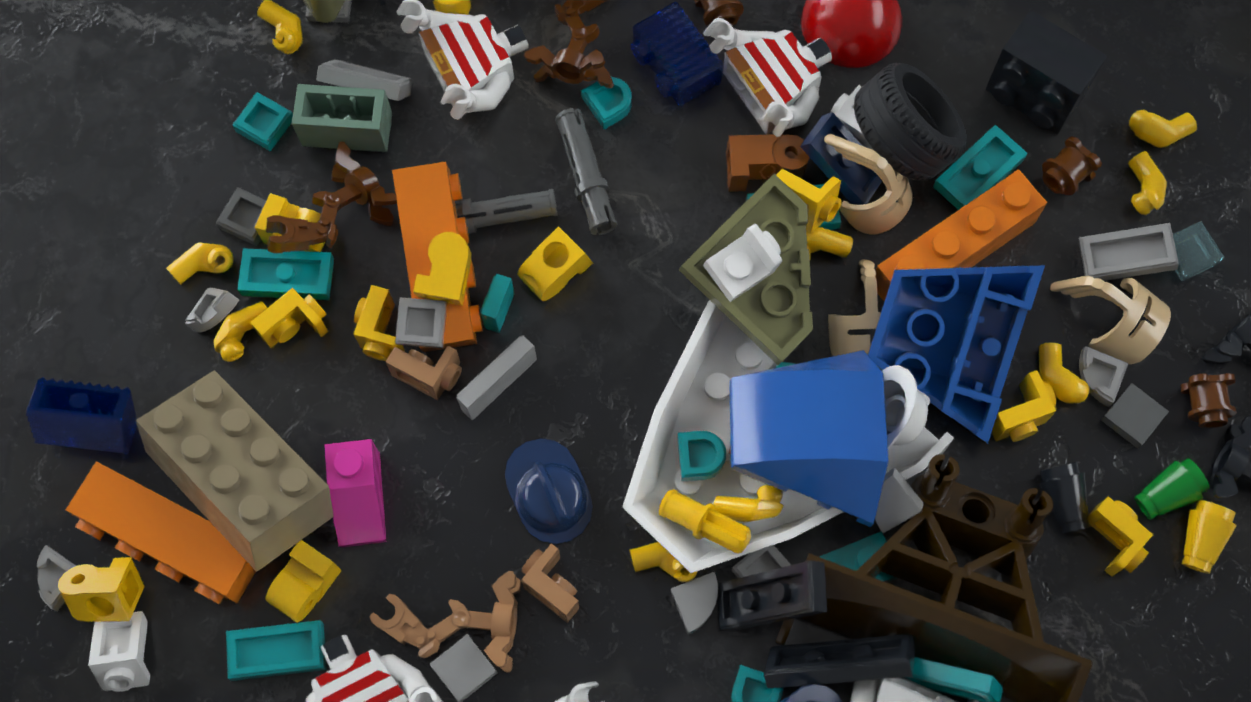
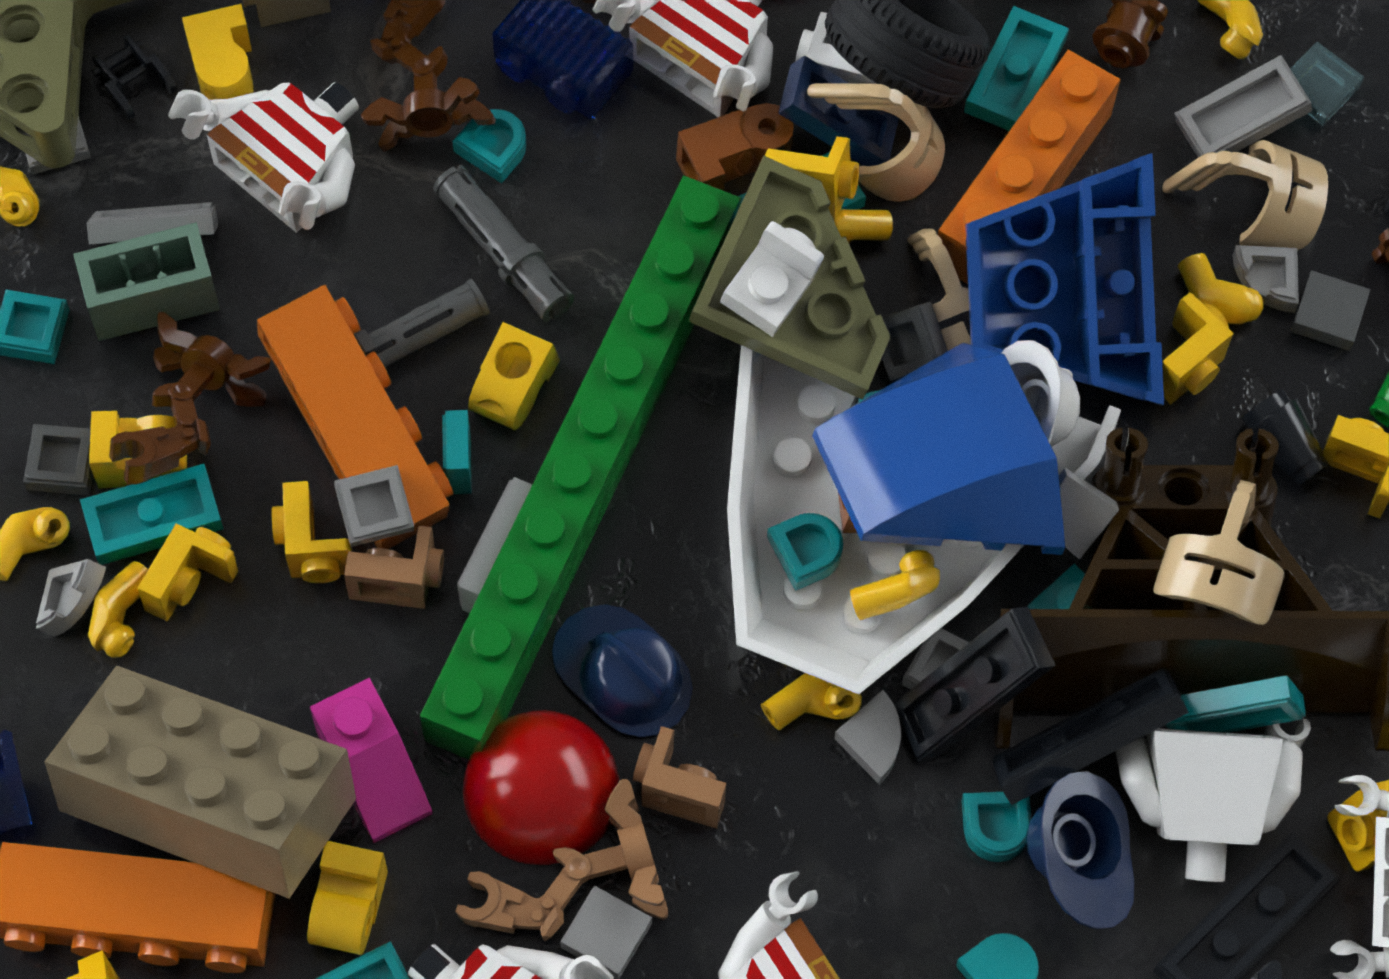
camera: 25 degrees left, 5 degrees down
(448, 272) = (387, 414): yellow leg -> none
(462, 550) = (540, 787): none -> red piece
(567, 350) = (578, 475): none -> green brick
(704, 521) = (850, 624): yellow axle -> none
(830, 334) = (913, 340): none -> dark grey tile
(975, 608) = (1234, 593): none -> tan helmet

